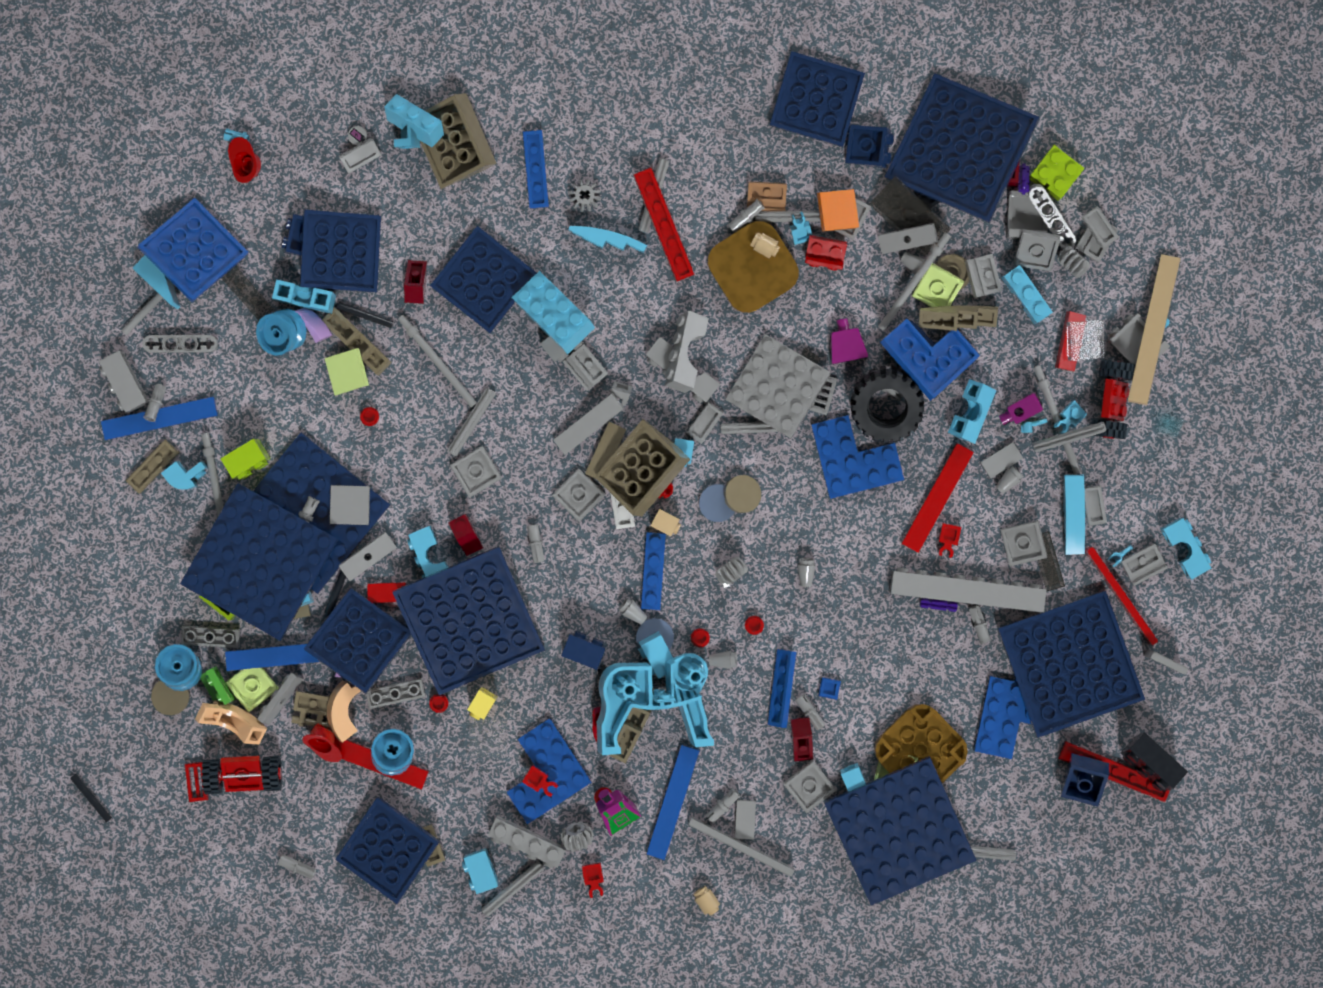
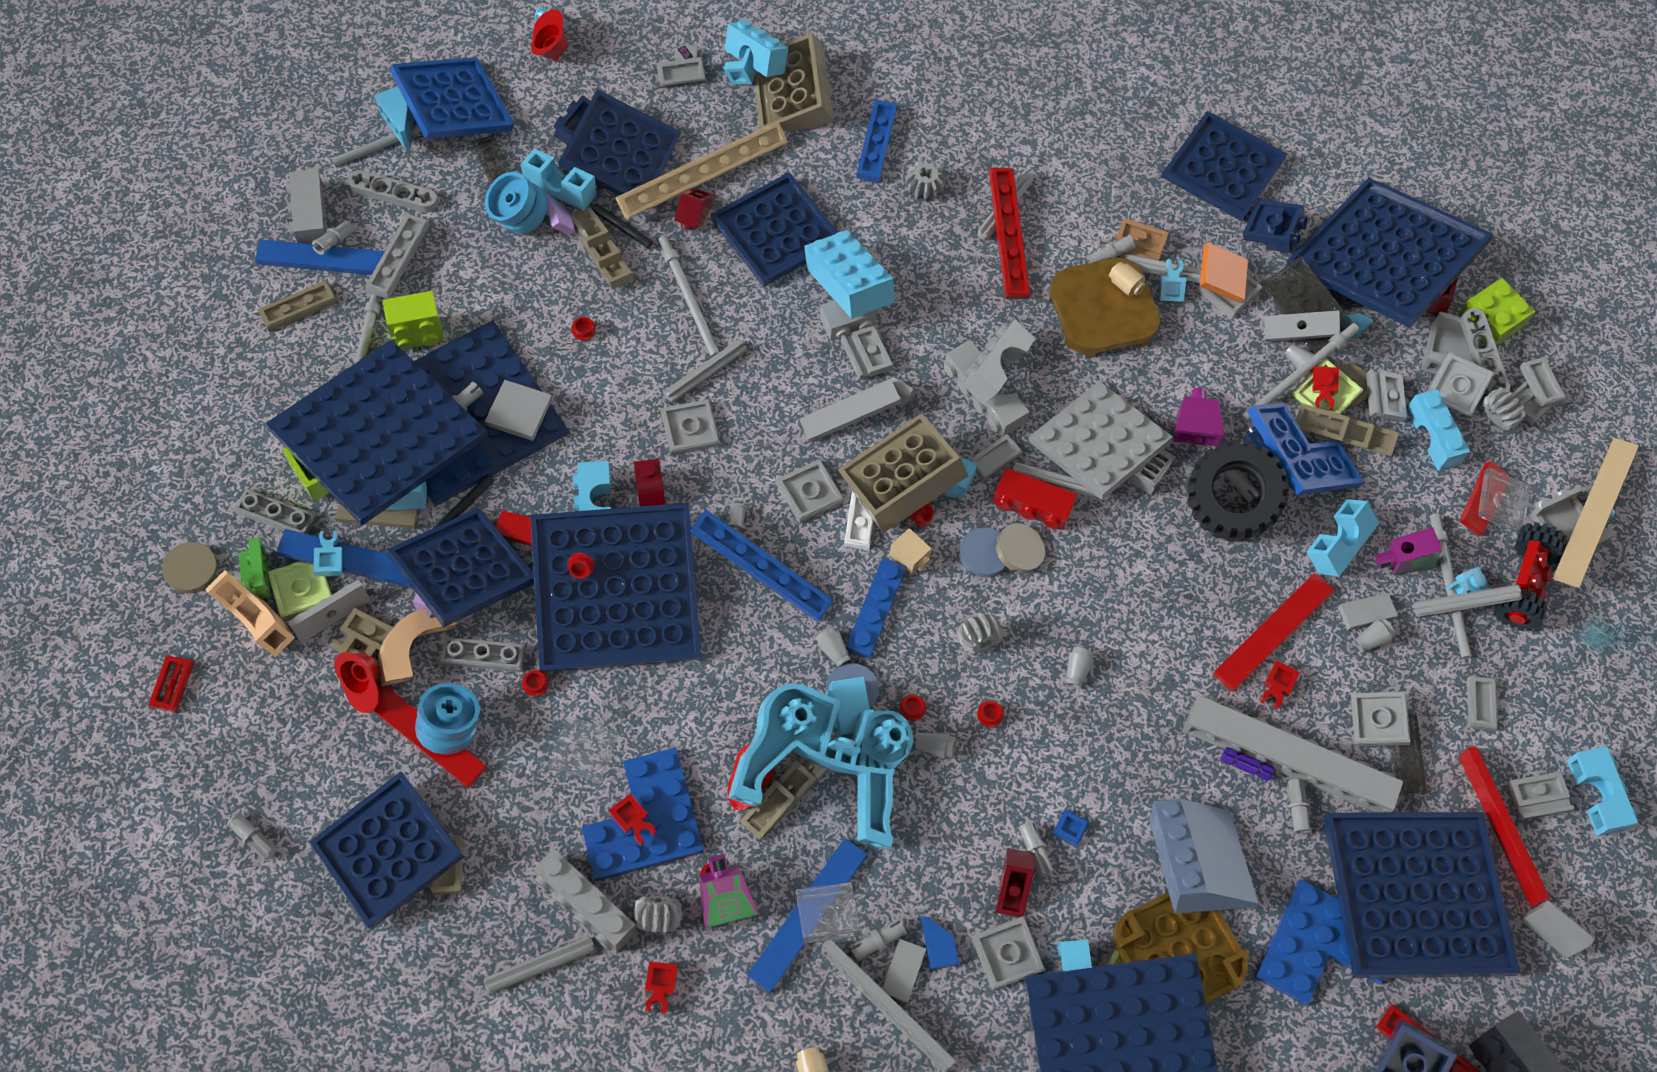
camera: 15 degrees right, 25 degrees down
(91, 798) = (22, 661): black bar -> none
(174, 657) = (216, 528): dark azure wheel -> none
(181, 479) = (328, 326): medium azure brick -> none
(209, 403) = (397, 256): none -> light grey tile
(242, 774) = (234, 686): plate -> none
(265, 666) = (328, 558): none -> medium azure plate
(346, 371) = (576, 271): yellowish green tile -> none
(377, 548) = (531, 473): light grey tile -> none
(410, 247) = (701, 170): none -> tan tile
(441, 619) = (580, 565): none -> red plate
(480, 871) = (503, 922): medium azure brick -> none
(482, 704) = (593, 693): light yellow brick -> none
(564, 571) = (761, 565): none -> blue tile
(584, 650) = (753, 667): dark blue brick -> none
(600, 237) = (933, 224): medium azure slope -> none
(606, 448) = (870, 436): dark tan tile -> none
(685, 801) = (827, 912): none -> clear tile
(742, 452) = (1034, 499): none -> red brick
(763, 794) = (939, 945): none -> blue tile
(782, 688) = (1005, 805): blue plate -> none
(825, 253) = (1197, 315): red bracket -> none
(845, 467) = (1167, 566): blue plate -> none
(921, 686) = (1201, 857): none -> sand blue slope
(935, 285) = (1326, 383): none -> red plate
(949, 215) = (1361, 321): none -> medium azure tile
(1024, 179) = (1457, 306): dark purple axle -> none
(1026, 427) = (1410, 581): medium azure hand -> none
(1074, 514) = (1455, 703): medium azure slope -> none
(1118, 556) = (1504, 775): medium azure hand -> none

